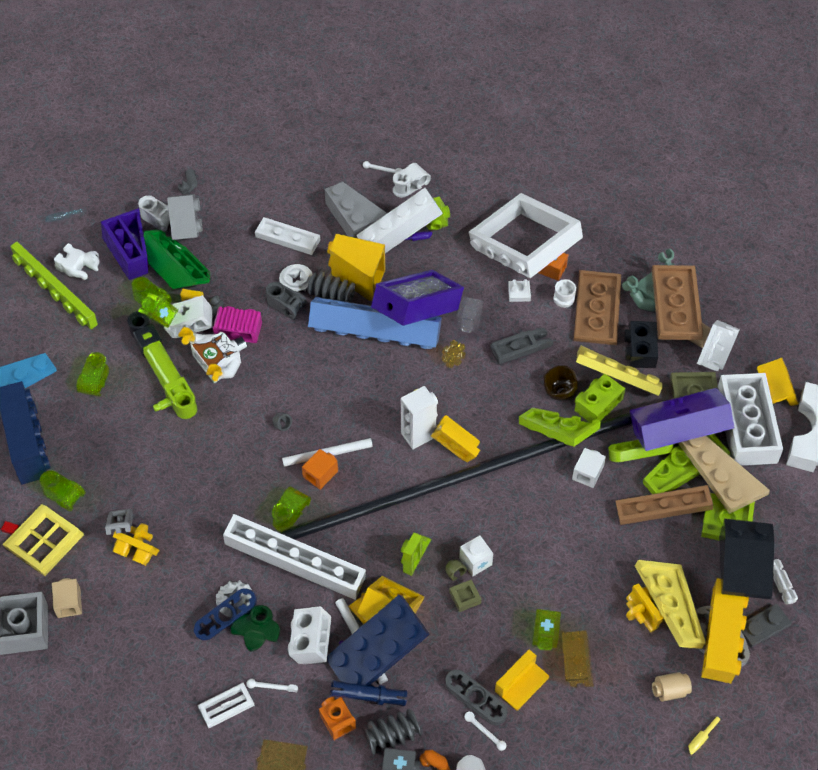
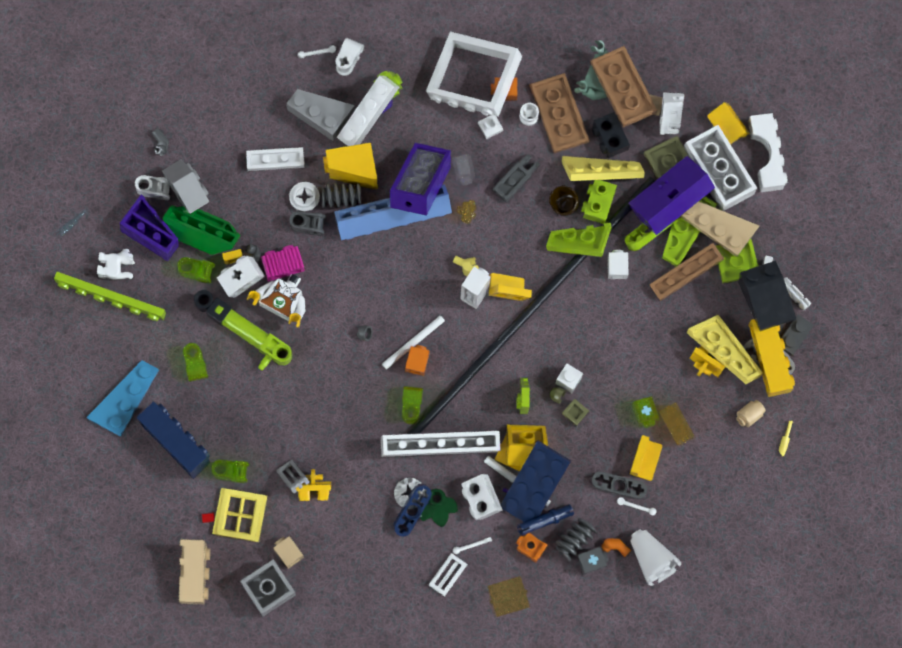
camera: 30 degrees left, 20 degrees up
(158, 310) = (219, 286): clear neon green brick -> none

